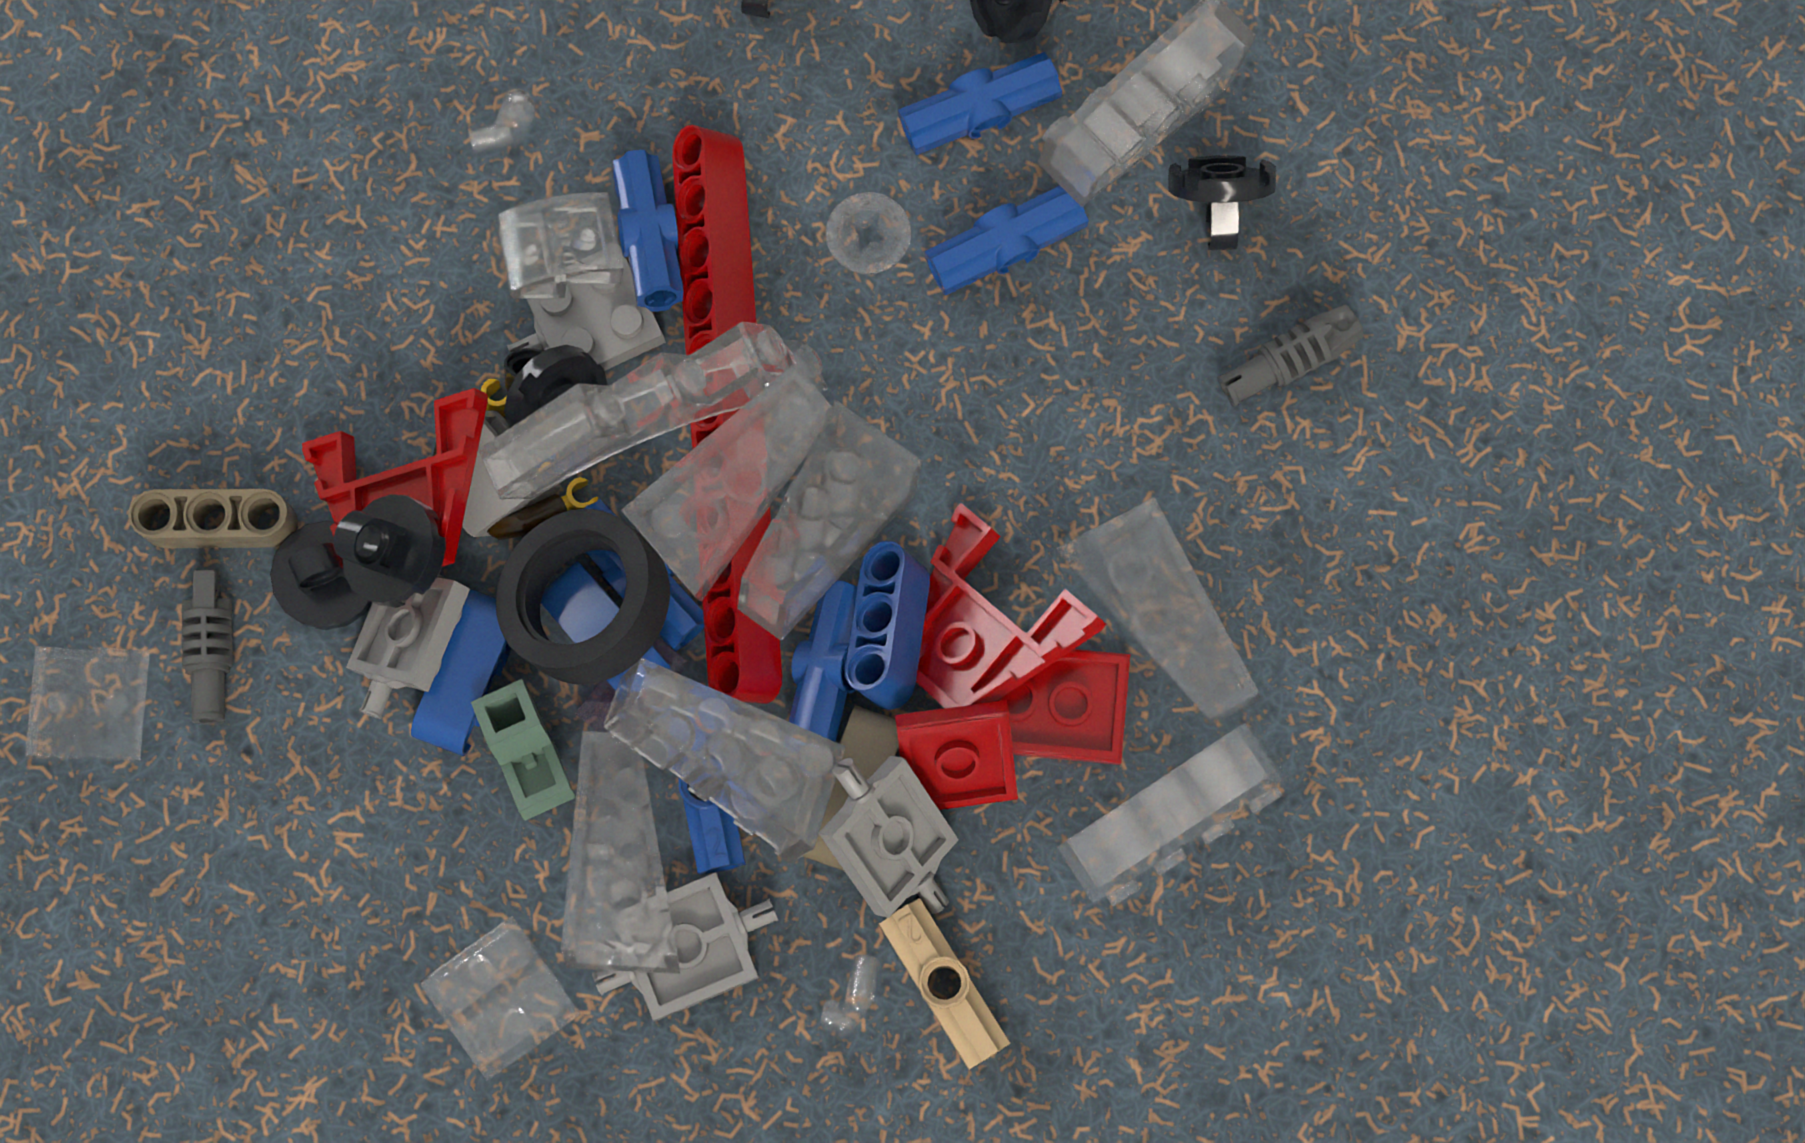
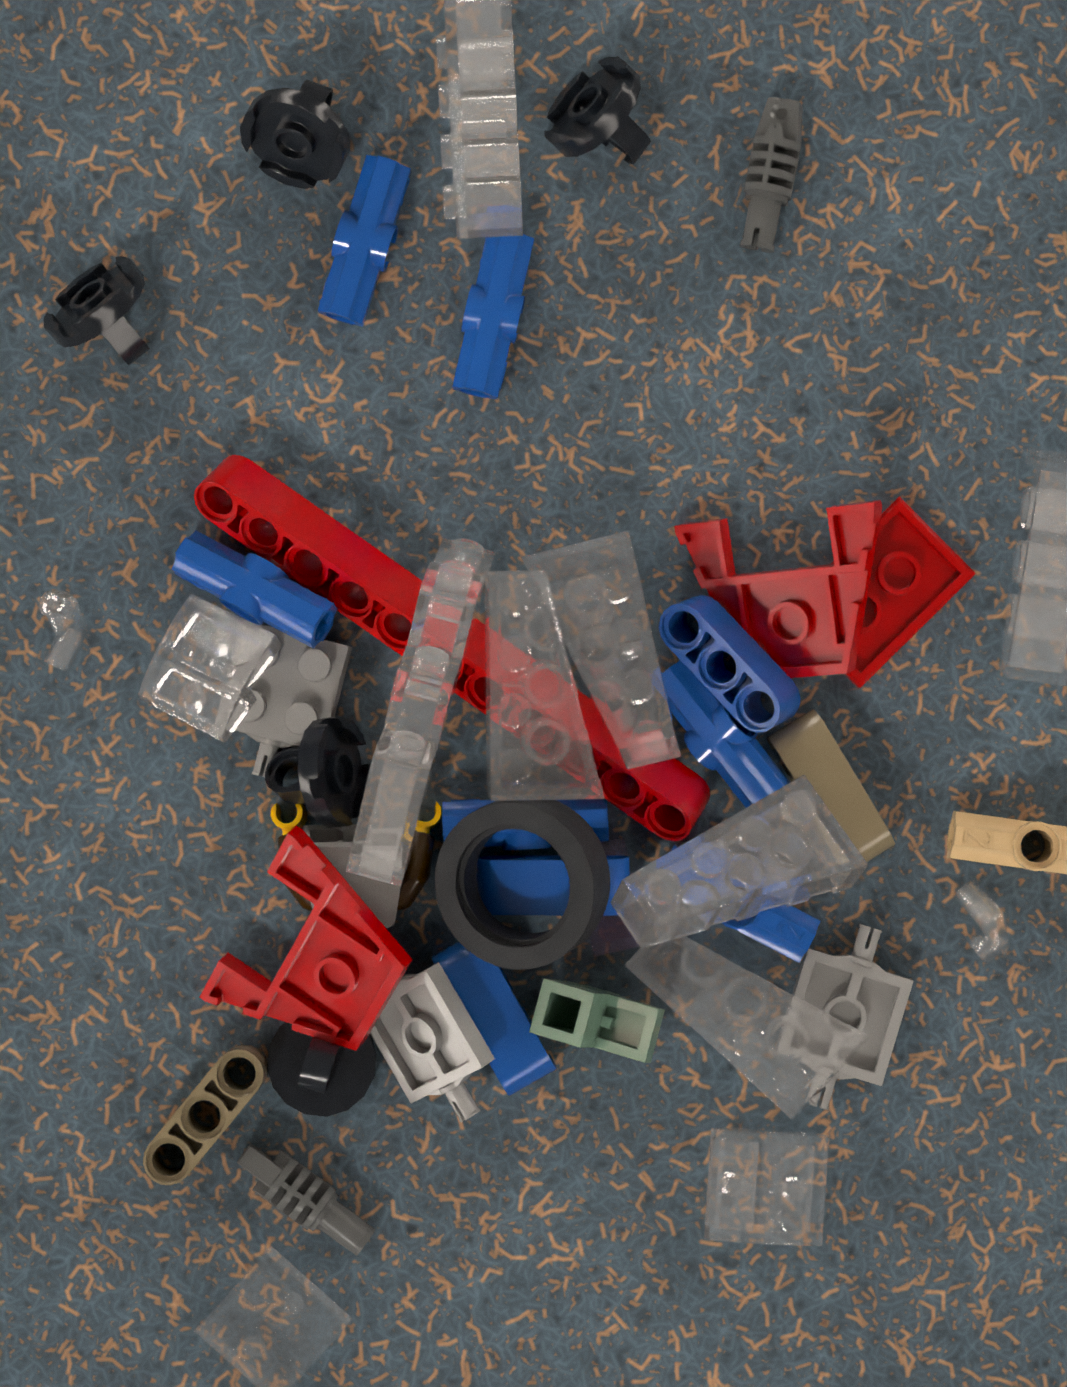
camera: 55 degrees left, 10 degrees up
(390, 549) = (364, 999): black tile -> none
(859, 212) = (407, 393): clear gear -> none
(889, 836) = (896, 797): light grey plate -> none
(961, 753) = (875, 695): red tile -> none
(1163, 607) = (891, 442): clear wedge -> none

